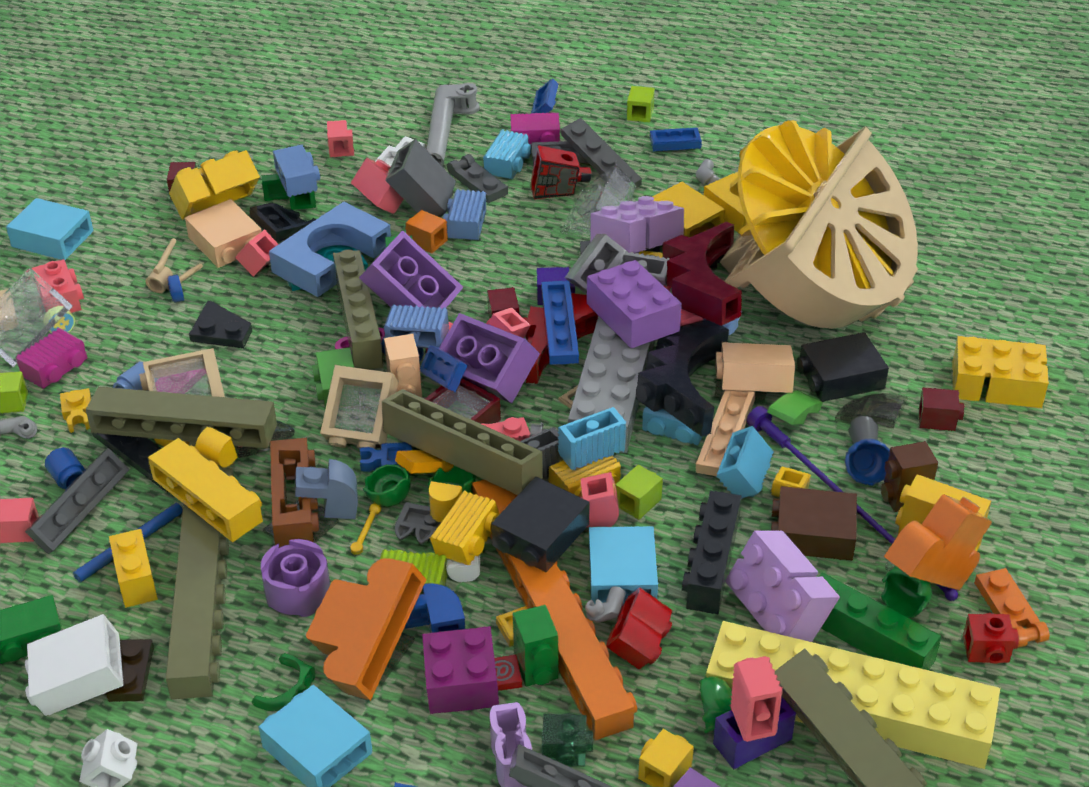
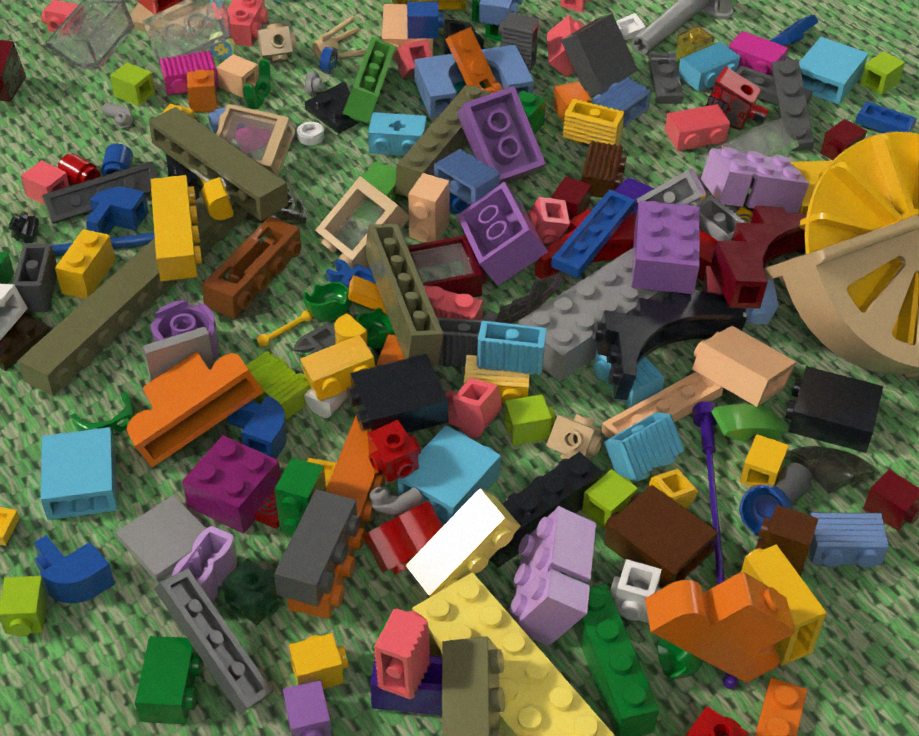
camera: 35 degrees right, 5 degrees up
(28, 569) = (24, 227): none -> black plate
(40, 489) = (78, 168): none -> red brick
(84, 367) = (202, 90): none -> orange brick
(97, 596) = (36, 276): none -> dark grey brick
(103, 339) = (235, 73): none -> light nougat brick
(108, 506) = (117, 207): none -> blue brick
(112, 294) = (269, 49): none -> tan brick
(132, 338) = (252, 95): none -> green cap
(180, 317) = (313, 83): none -> light grey arm
(224, 358) = (310, 133): none -> white tile
(239, 287) = (369, 80): none -> bright green brick
(243, 214) = (423, 19): none -> blue brick
(305, 323) = (395, 132): none -> medium azure brick
(311, 593) = (170, 351): none -> light grey tile
(323, 231) = (472, 61): none -> orange plate
(333, 484) = (281, 277): sand blue brick -> none
(336, 189) = (523, 33): none -> dark grey brick
(440, 747) = (161, 537): none -> light grey tile
(443, 368) = (453, 223): blue plate -> none
(465, 239) = (591, 122): none -> yellow brick
(480, 140) = (692, 41): none -> clear yellow brick
(504, 270) = (603, 168): none -> reddish brown brick
(544, 206) = (697, 127): none -> coral brick
(559, 403) = (523, 306): none -> clear smoke brick
(579, 566) = (393, 451): none -> red brick
(596, 671) = (317, 548): none -> dark grey brick
(604, 114) = (832, 69): none -> medium azure brick
(662, 168) = (840, 138): none -> dark red brick
(679, 487) = (565, 434): none -> tan brick
(699, 605) = (464, 543): none -> brick
(755, 513) = (607, 496): none -> lime brick
(833, 431) = (763, 462): none -> yellow brick
(843, 563) = (633, 587): none -> white brick
(947, 445) = (848, 539): none -> medium blue brick

